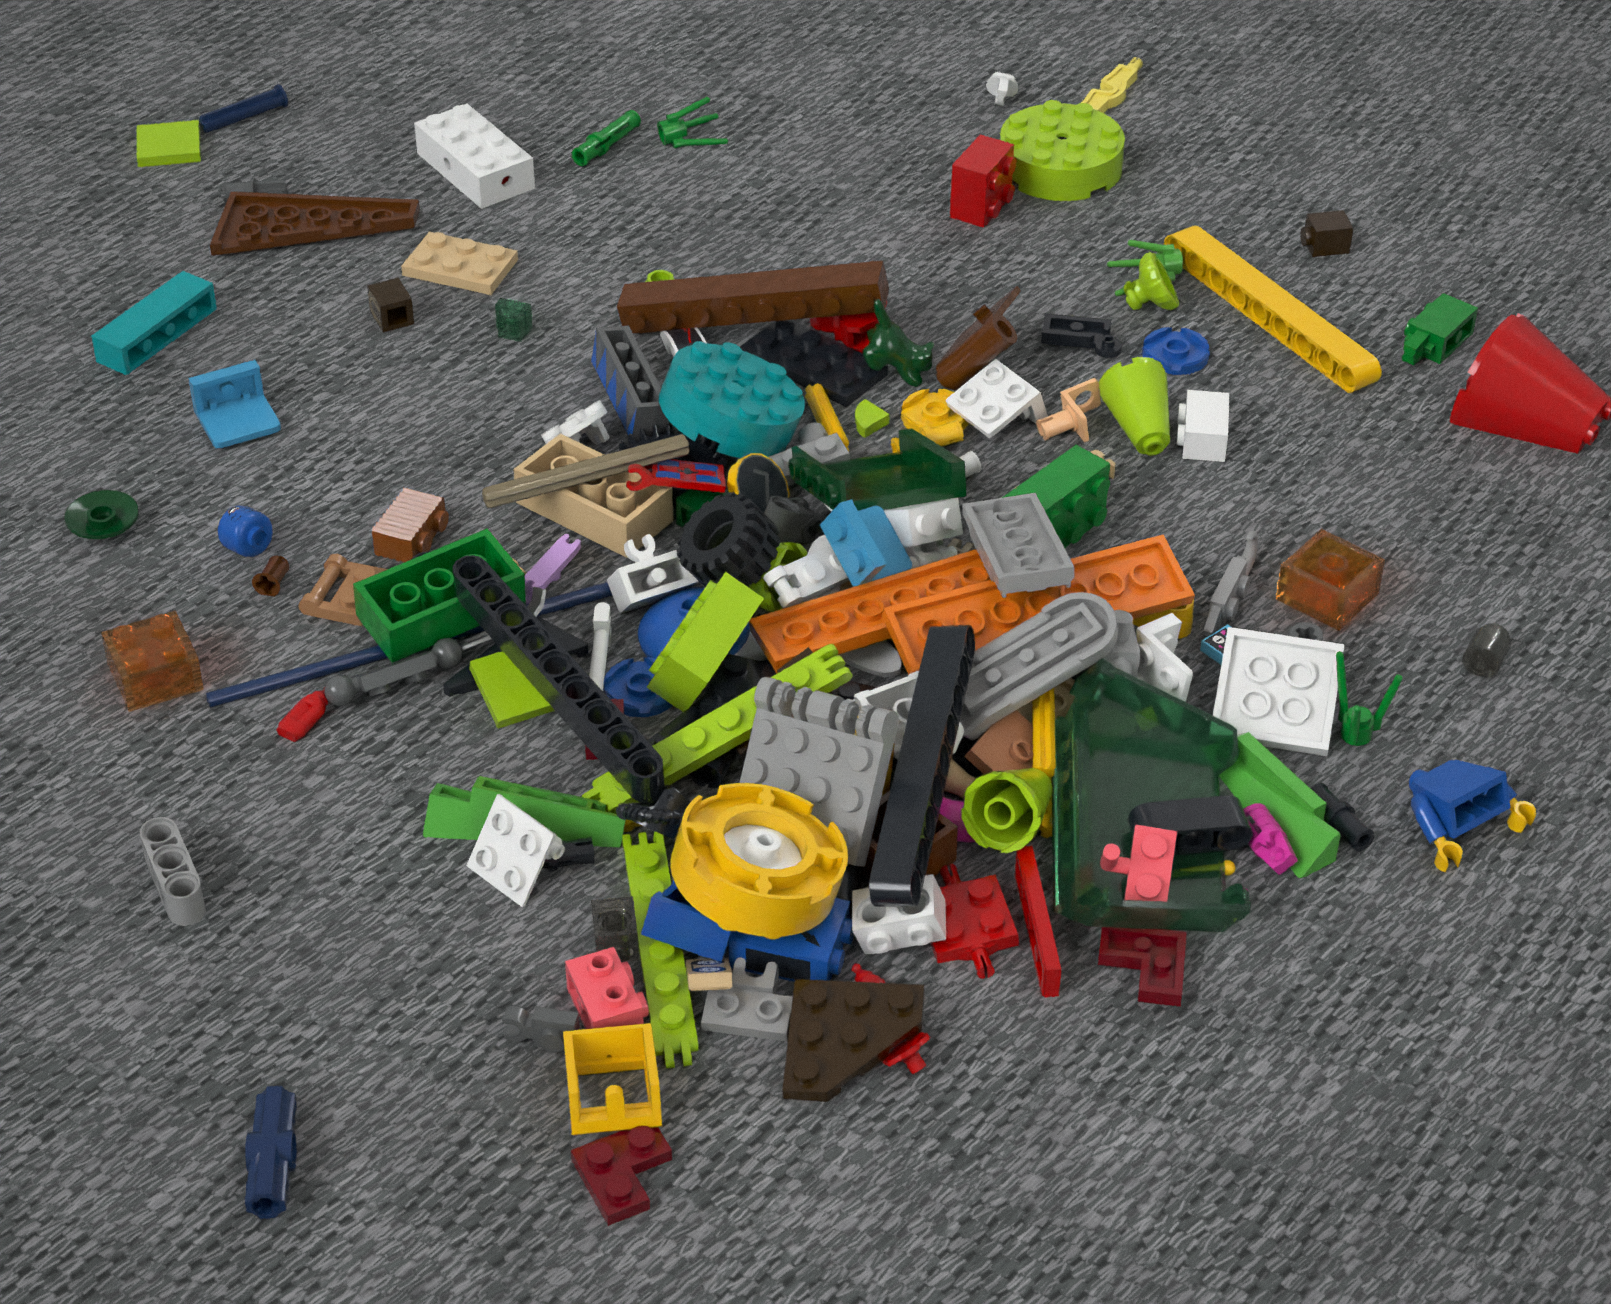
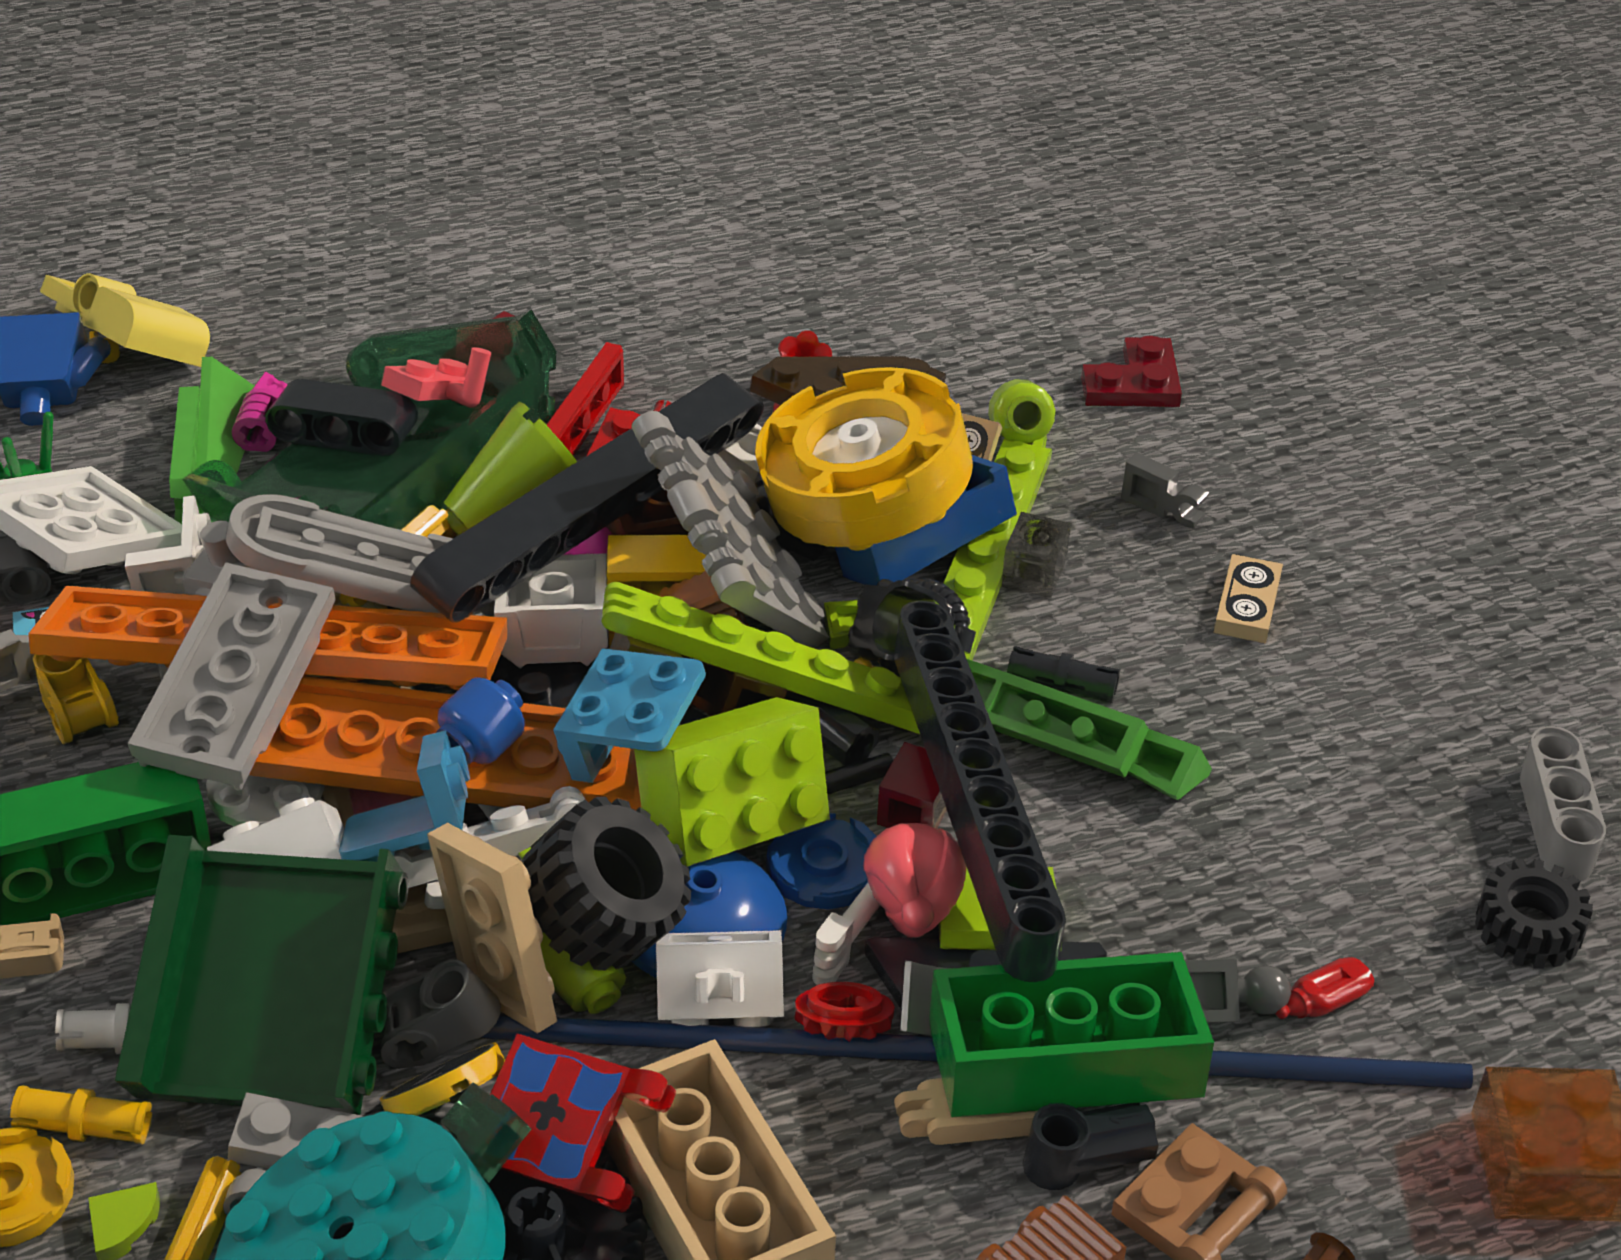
camera: 155 degrees left, 0 degrees up
(181, 779) = (1525, 935): none -> black tyre
(271, 1152) = (1490, 482): dark blue piece -> none
(442, 972) = (1248, 598): none -> tile
(513, 850) = (1105, 660): white hinge -> none
(551, 565) = (849, 1092): lavender piece -> none
(563, 587) = (844, 1010): none -> red gear
(580, 640) = (915, 875): none -> coral piece
(584, 471) = (722, 1149): dark tan axle -> none
(604, 990) = (1082, 493): coral brick -> none
(605, 1052) = (1103, 453): yellow window -> none
(693, 1057) = (1022, 410): none -> lime head
(711, 451) = (485, 1129): none -> clear green piece
(779, 602) = (627, 704): none -> dark azure bracket
(785, 502) = (494, 923): none -> tan plate
(866, 593) = (482, 719): none -> blue head
(1343, 819) = (161, 408): black pin -> none
(1413, 847) = (131, 319): none -> light yellow plate

